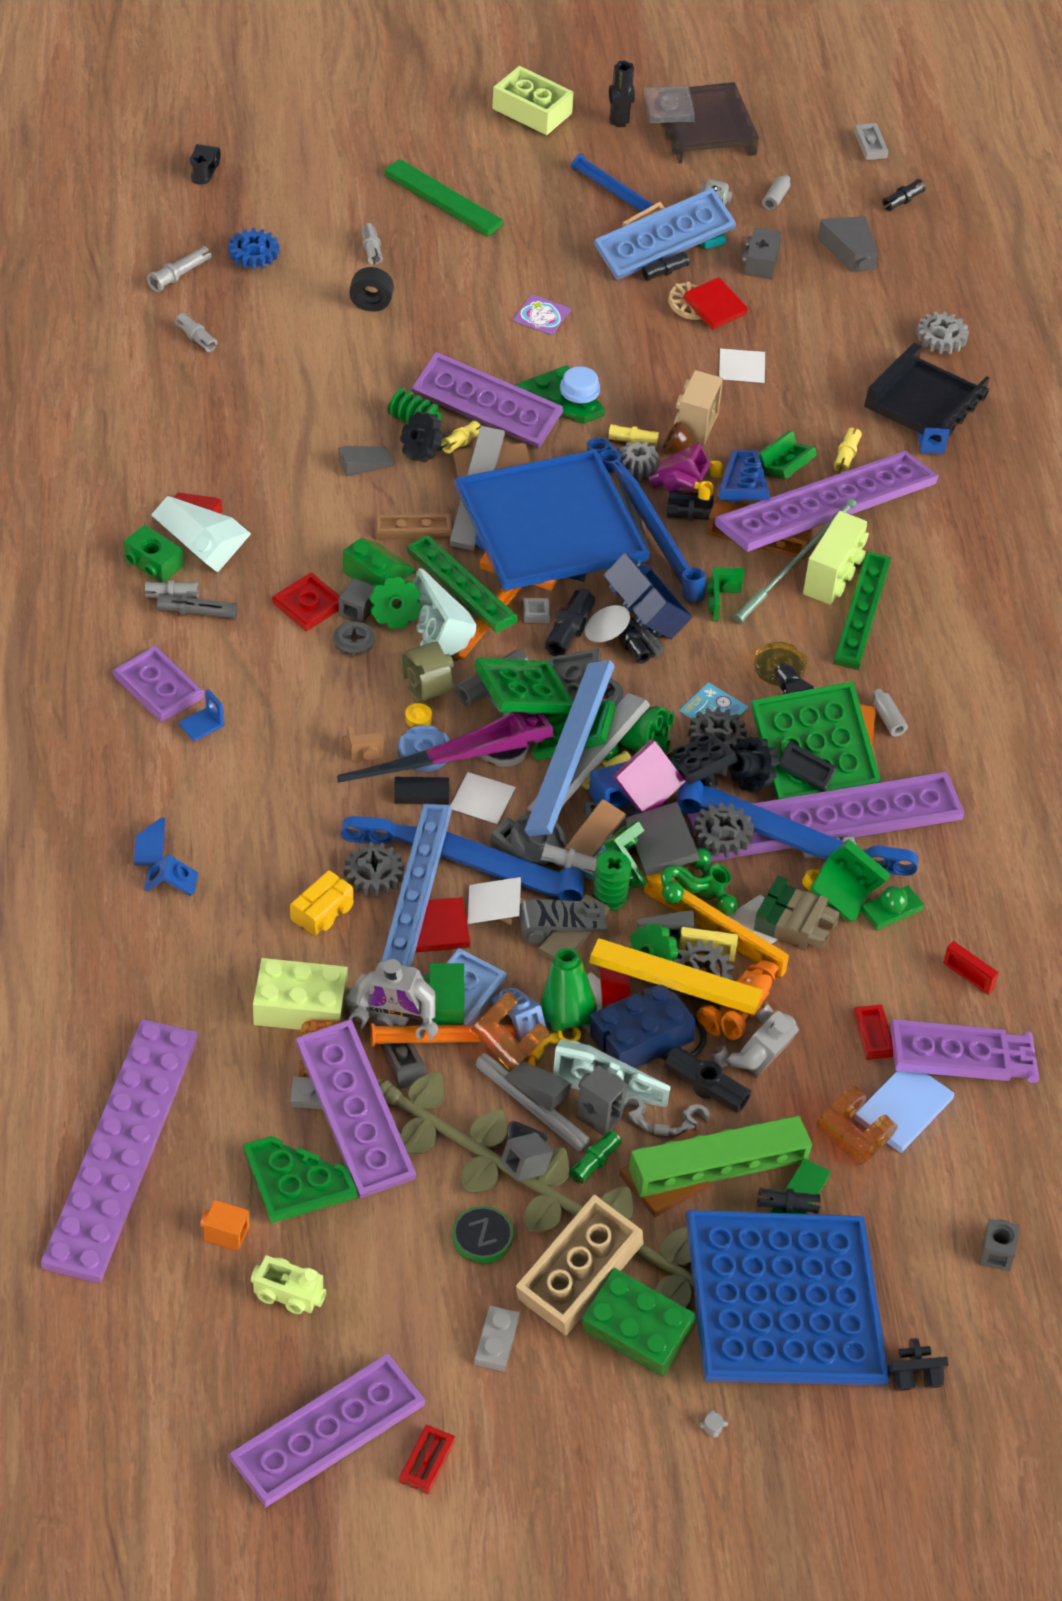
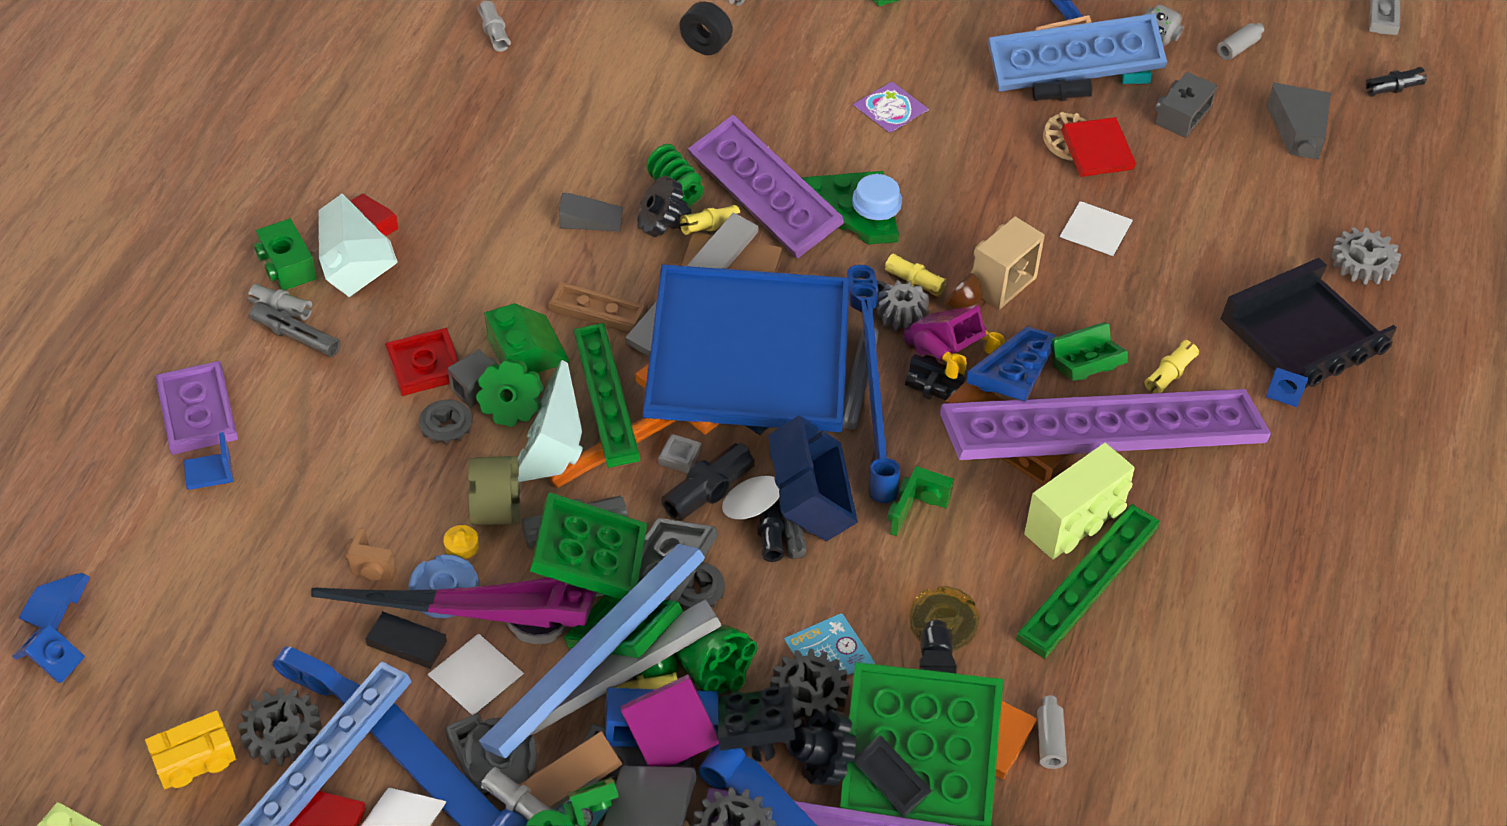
camera: 25 degrees right, 0 degrees up
(740, 616) = (966, 518): sand green piece -> none

